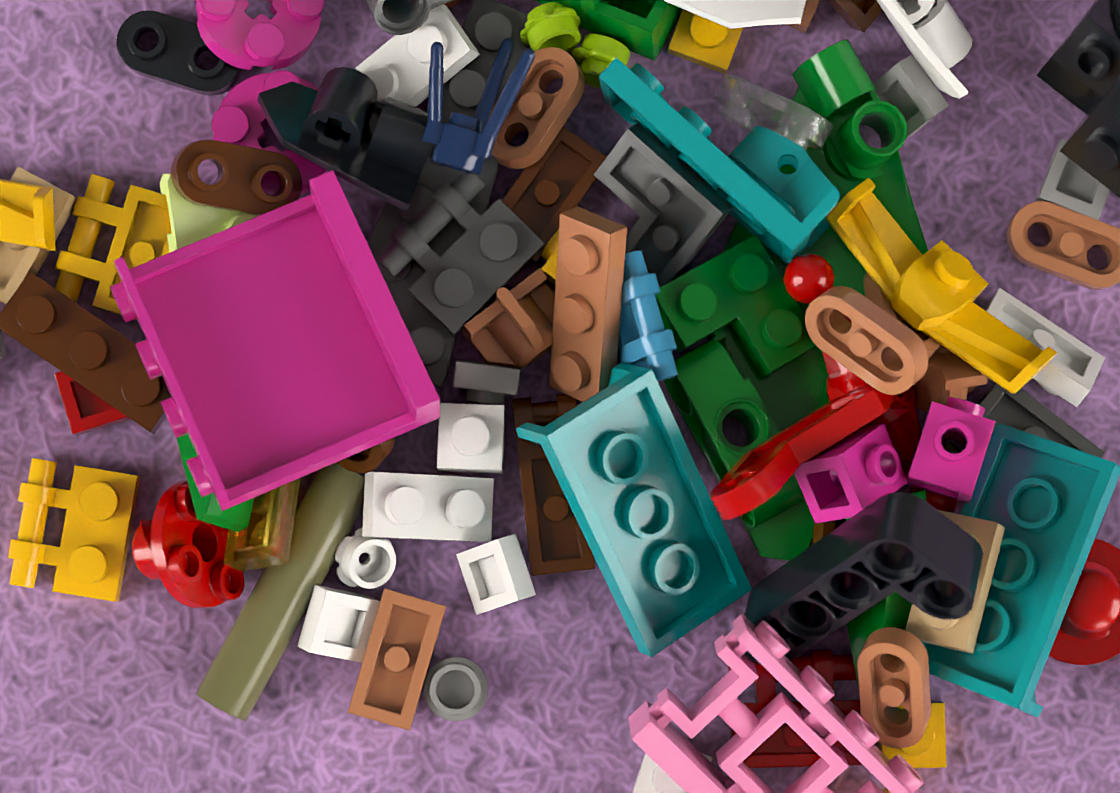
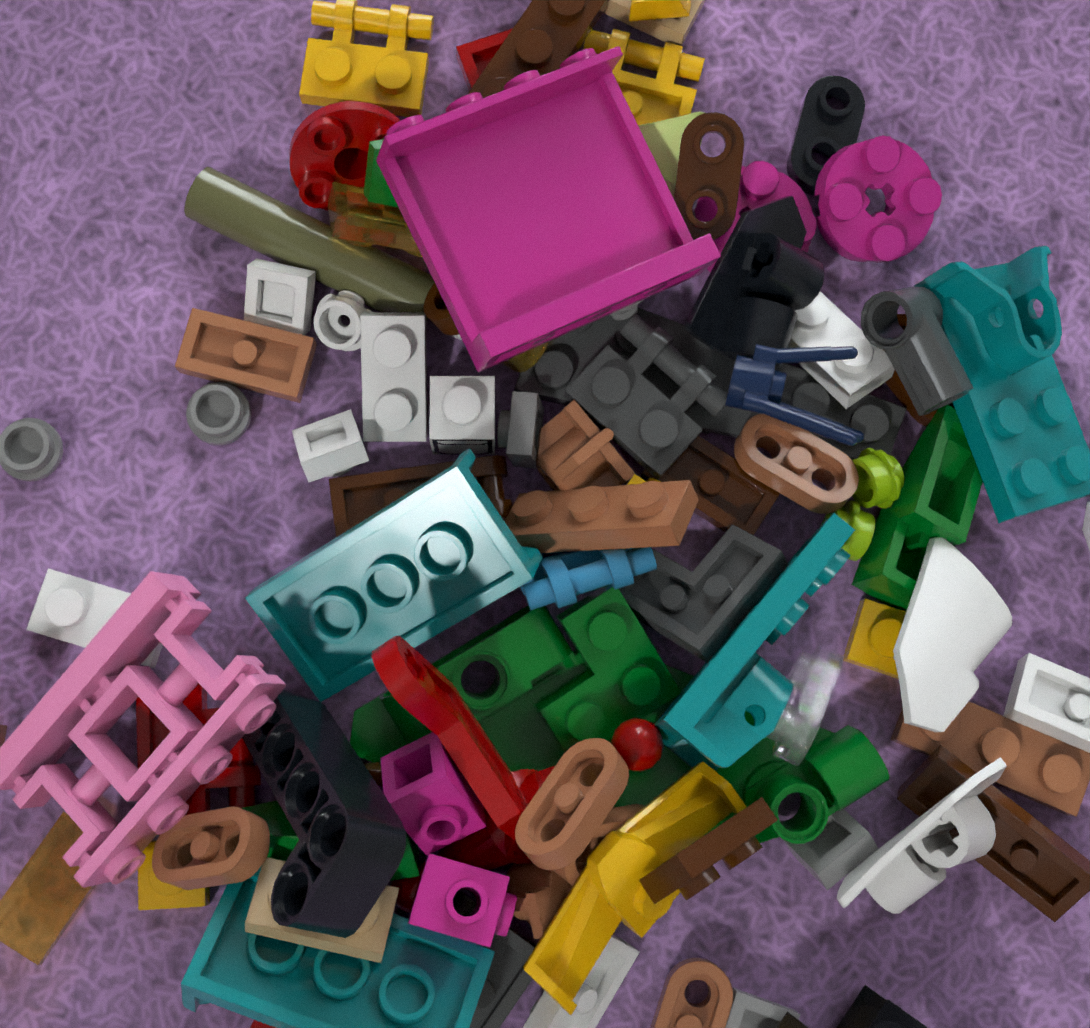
camera: 80 degrees right, 5 degrees down
(927, 230) = (693, 866): none -> reddish brown plate

